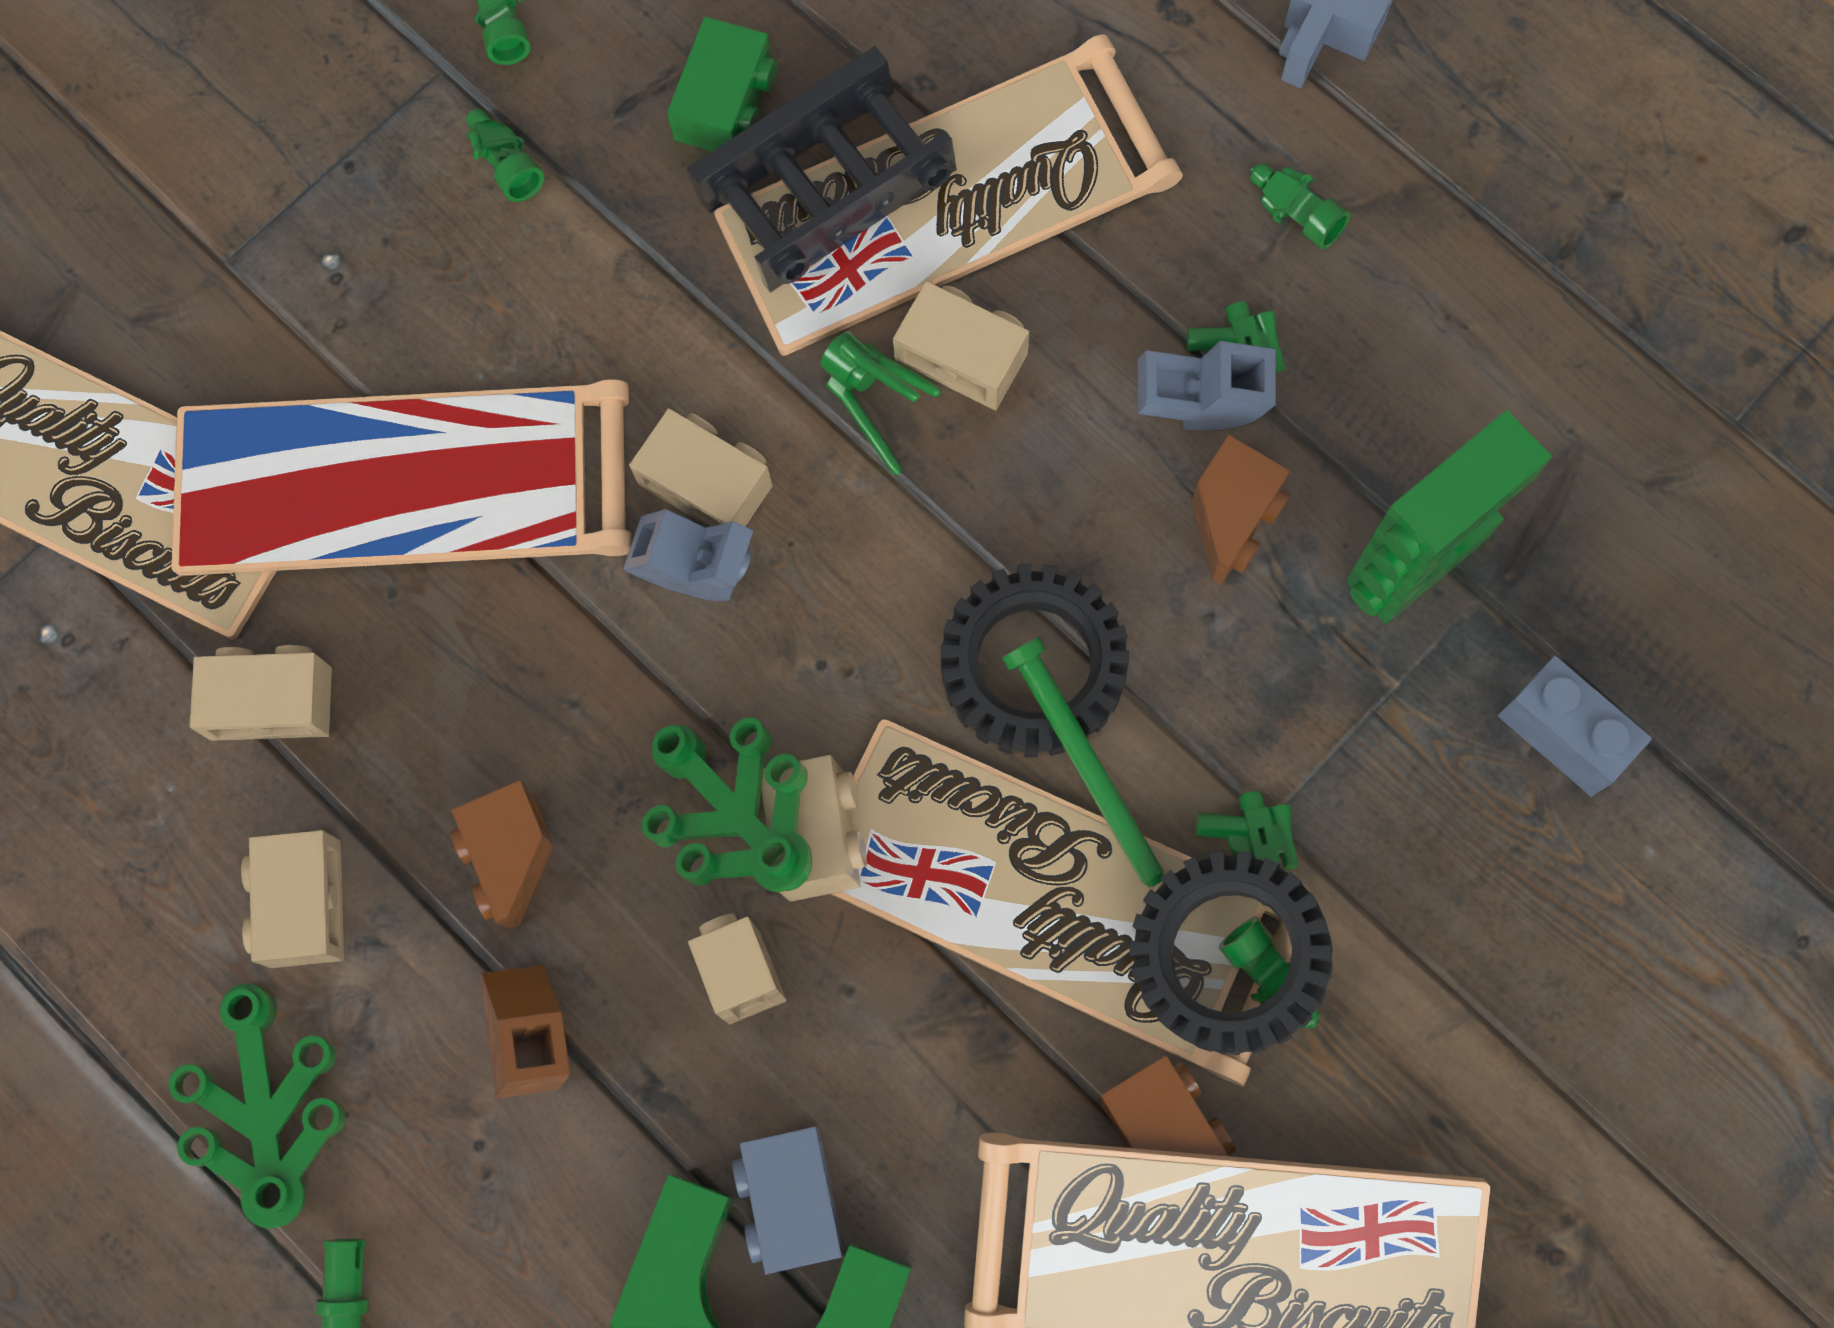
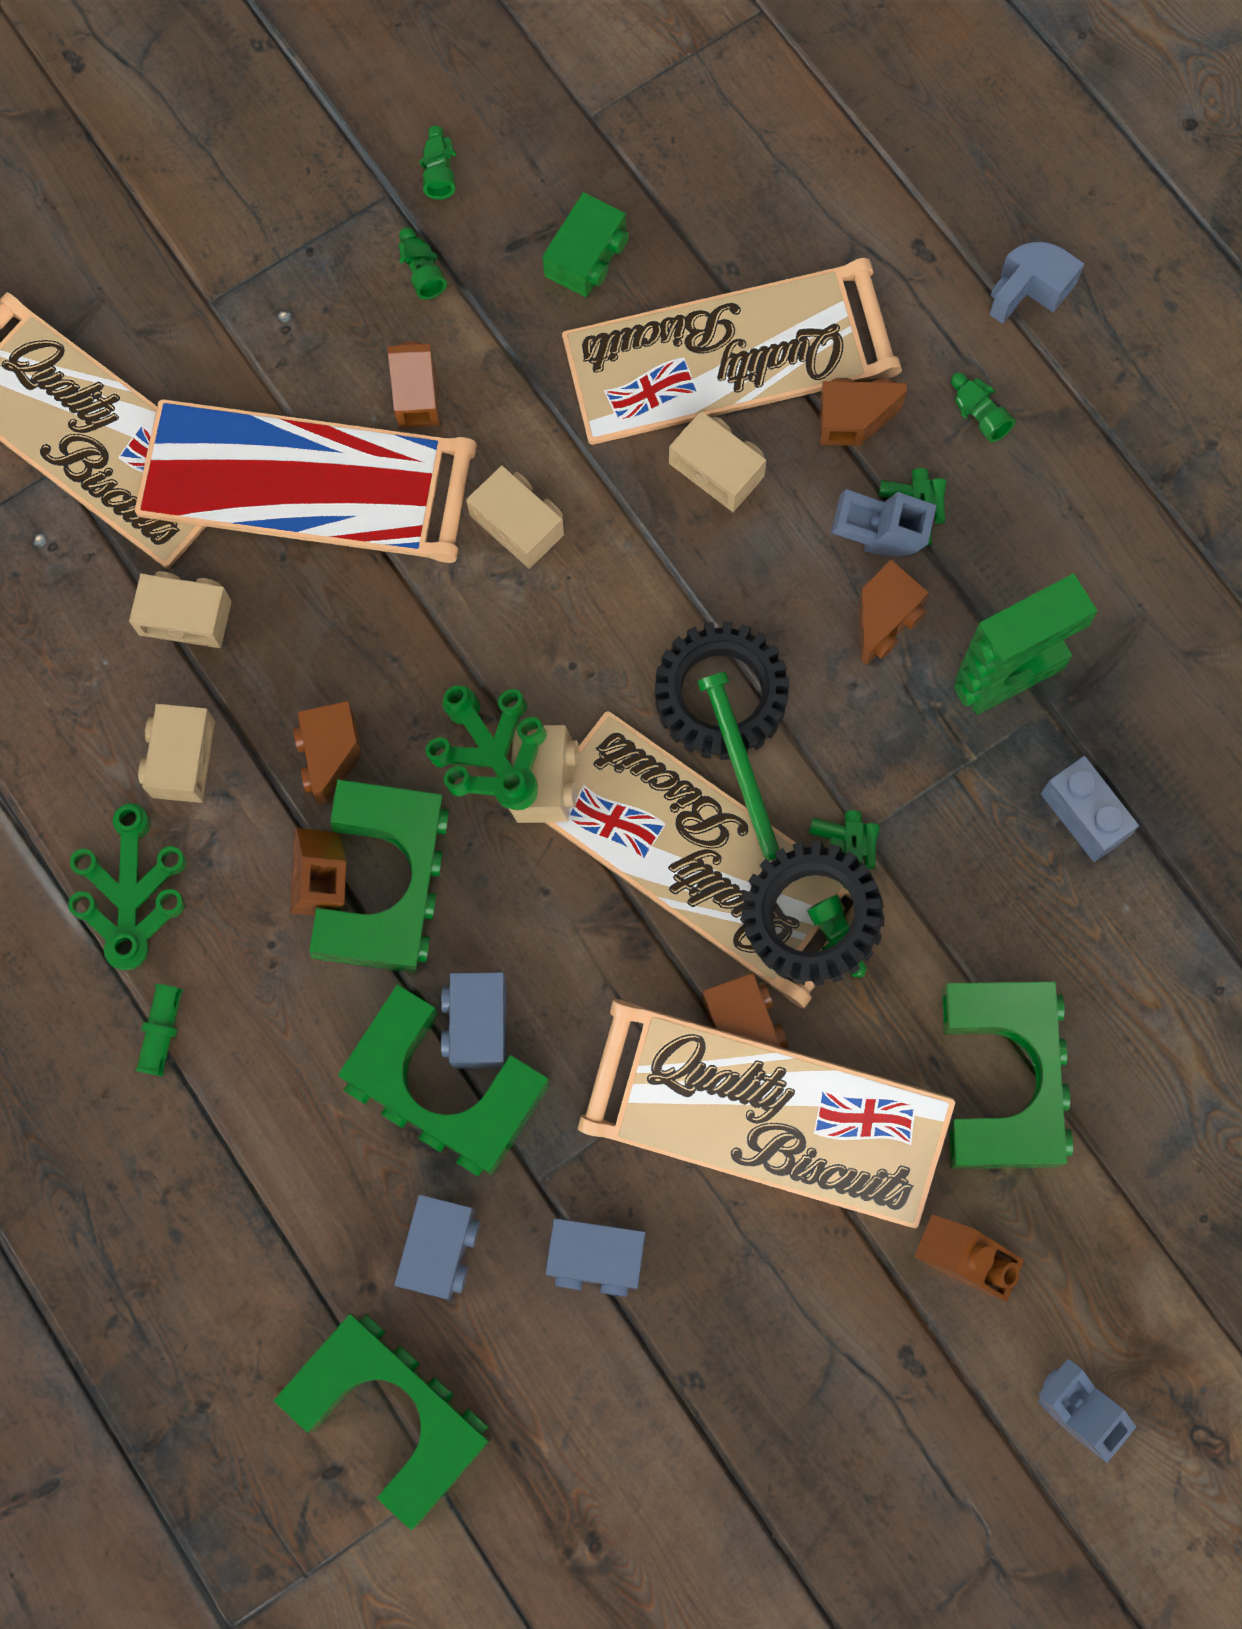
camera: 10 degrees right, 0 degrees up
(526, 320) = (414, 385): none -> slope
(653, 1101) = (393, 936): none -> green arch
(689, 556) = (495, 571): sand blue brick -> none
(736, 968) = (471, 857): tan brick -> none
(799, 125) = (633, 283): black fence -> none
(858, 367) = (641, 462): green plant -> none
(1135, 239) = (857, 410): none -> dark orange slope
(1606, 1197) = (1030, 1018): none -> green arch

